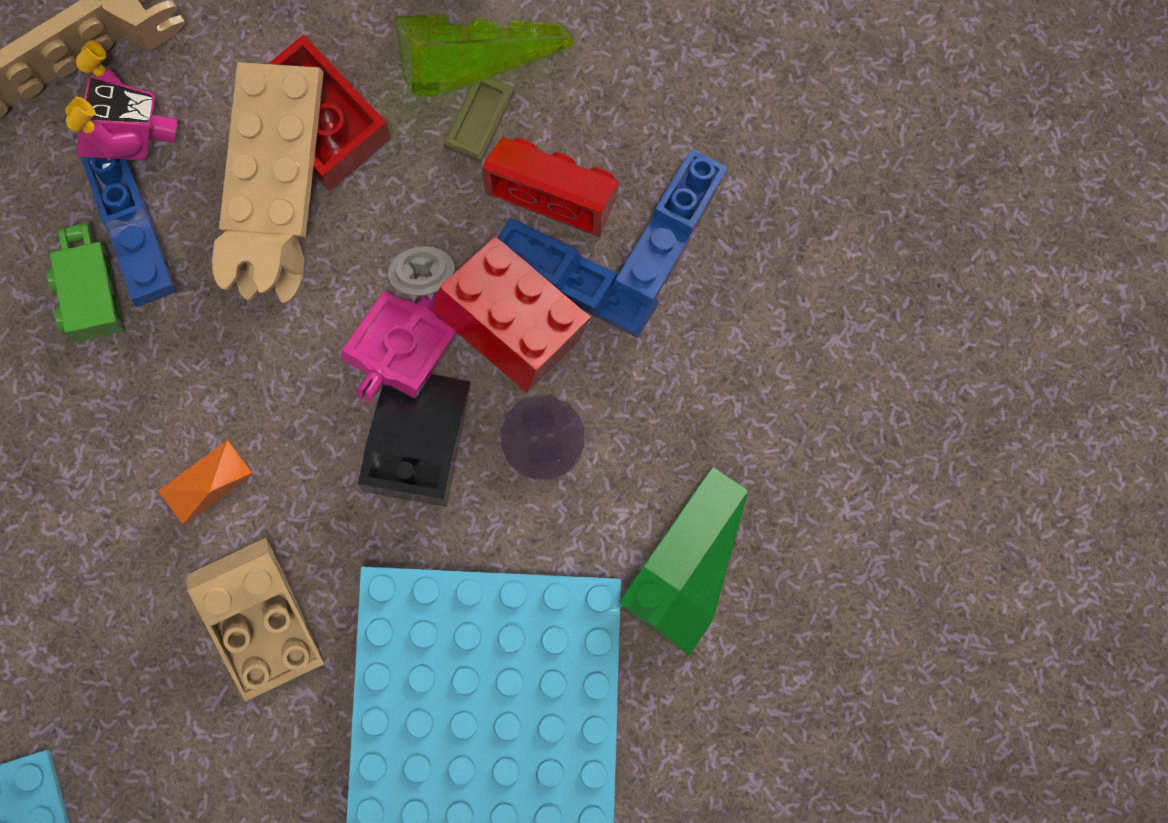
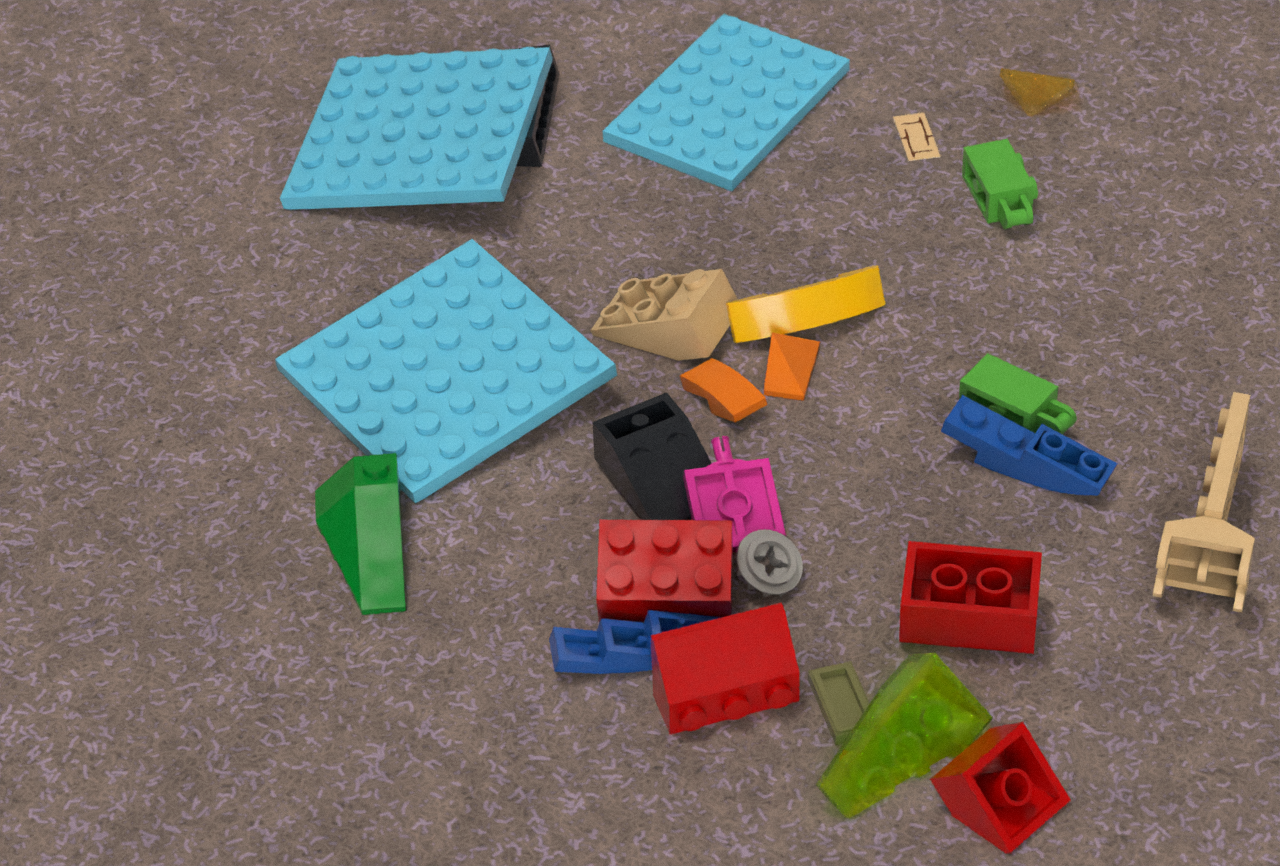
camera: 145 degrees right, 35 degrees down
(113, 117) = (1116, 486): torso -> none
(187, 538) = (806, 305): none -> yellow slope
(268, 179) = (944, 507): tan hinge -> none
(286, 492) = (725, 389): none -> orange slope
(547, 457) = (560, 536): clear purple plate -> none
(670, 228) = (594, 715): blue slope -> none

